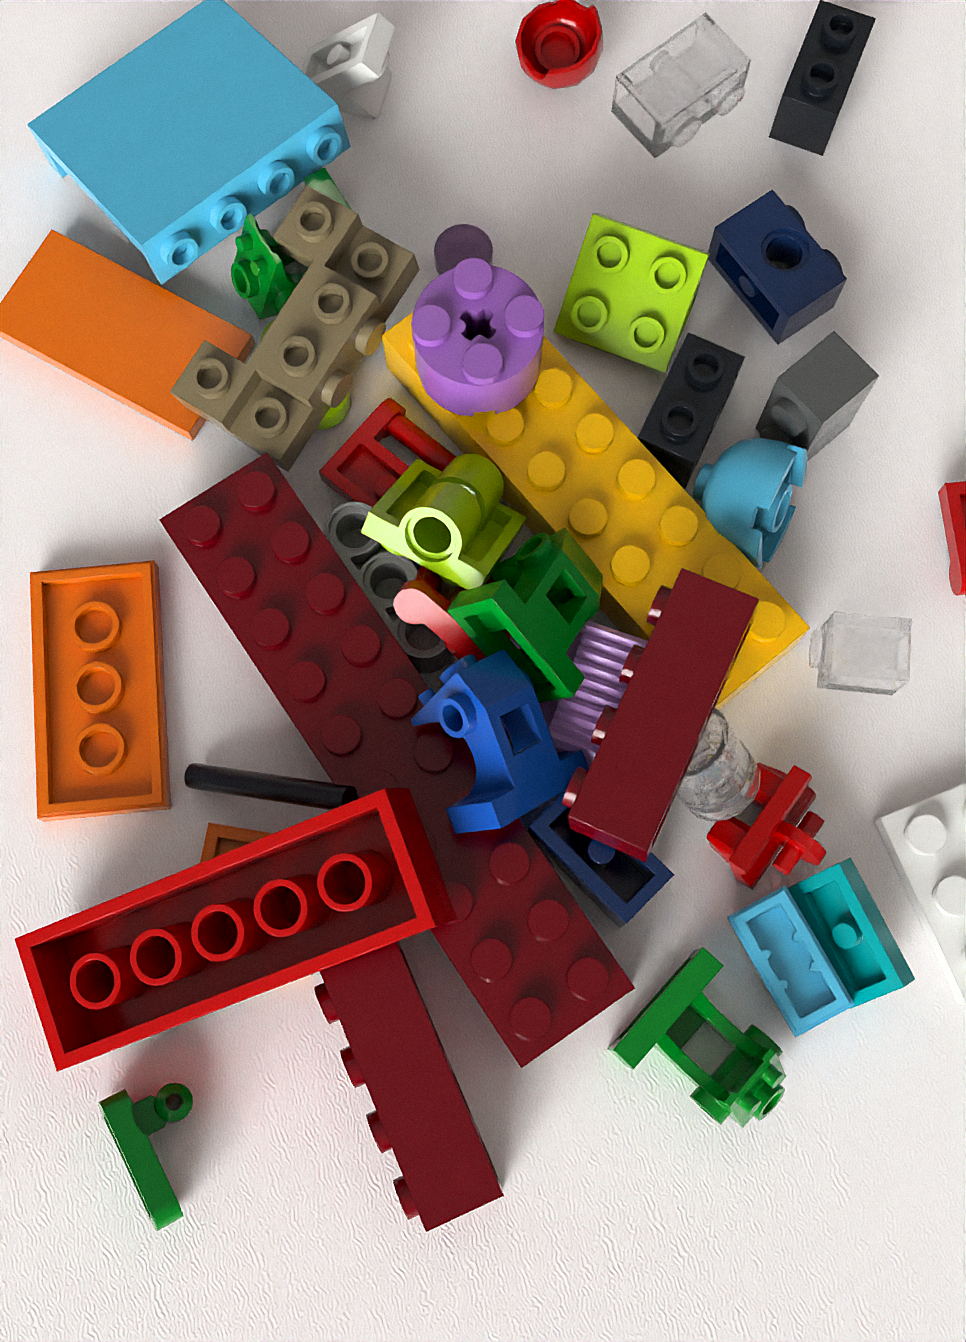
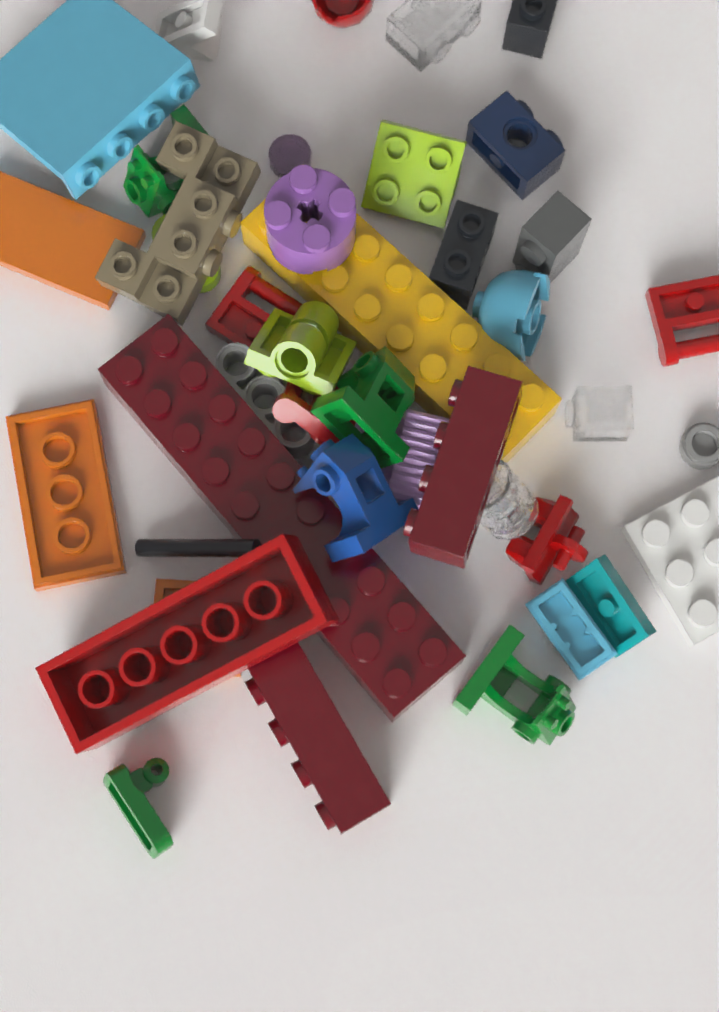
camera: 10 degrees left, 0 degrees up
(606, 875) = (437, 582): dark blue brick -> none

